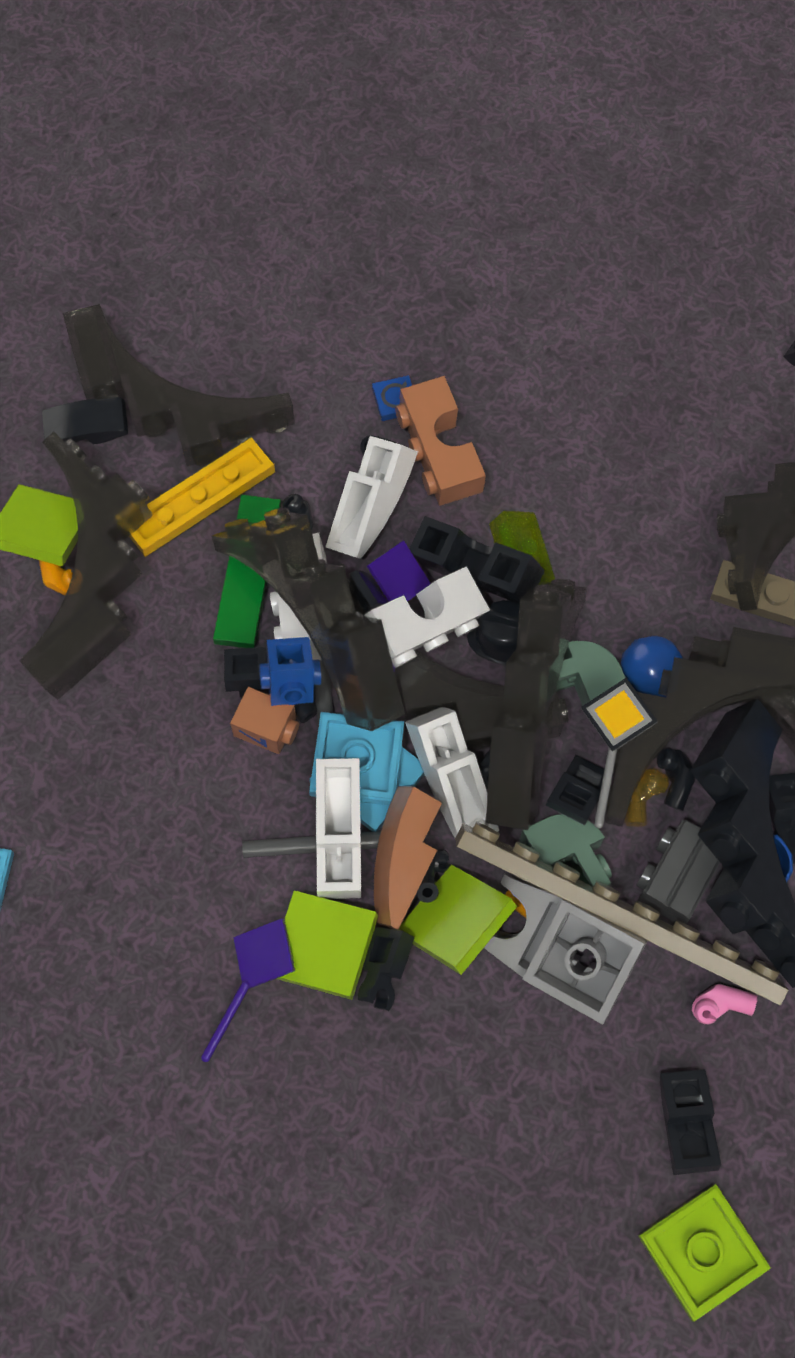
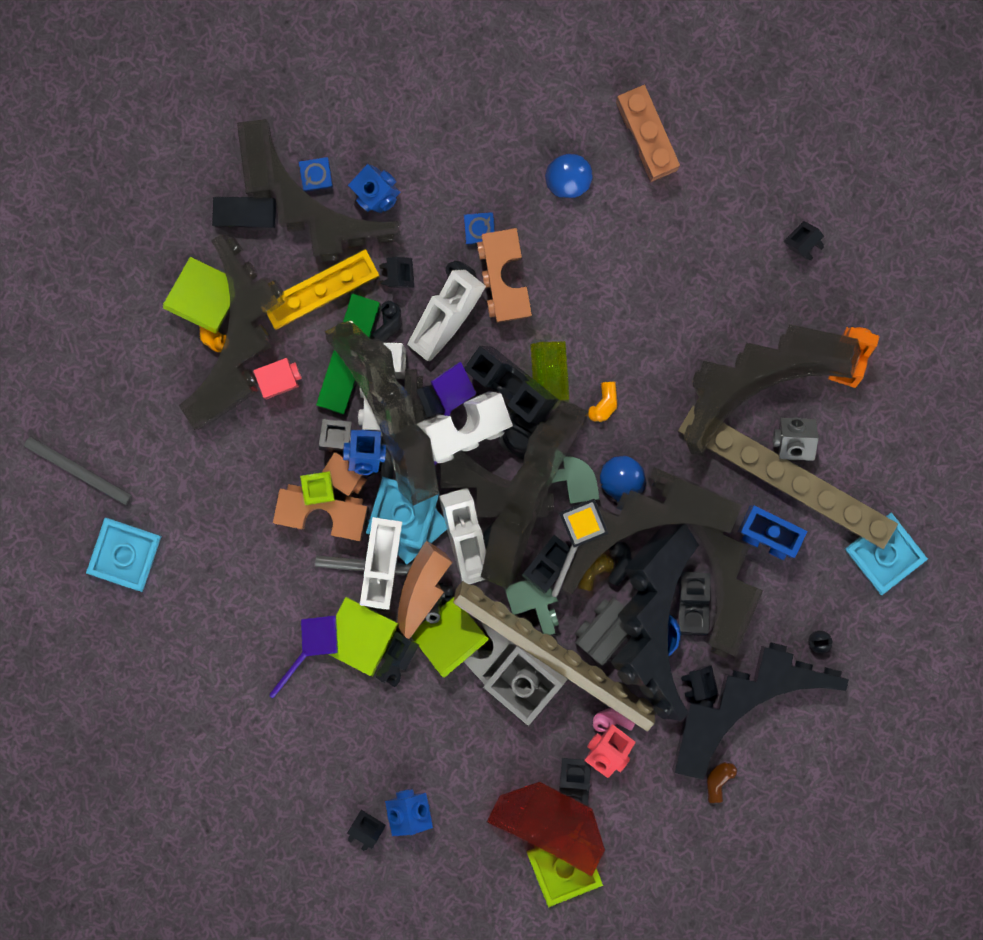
camera: 10 degrees right, 20 degrees up
(155, 611) = (277, 378): none -> coral brick
(174, 365) = (315, 174): none -> blue tile
(205, 771) = (347, 516): none -> nougat arch
(230, 736) = (317, 488): none -> lime tile
(251, 365) = (375, 189): none -> blue brick
(300, 460) = (399, 272): none -> black tile
(381, 1243) = (366, 830): none -> black tile
(445, 1201) = (408, 813): none -> blue brick
(496, 322) = (569, 176): none -> blue hair
(602, 274) = (648, 133): none -> nougat arch
(608, 578) = (607, 405): none -> light orange arm
(669, 1182) = (551, 825): none -> clear red wedge
(731, 1047) = (609, 751): none -> coral brick

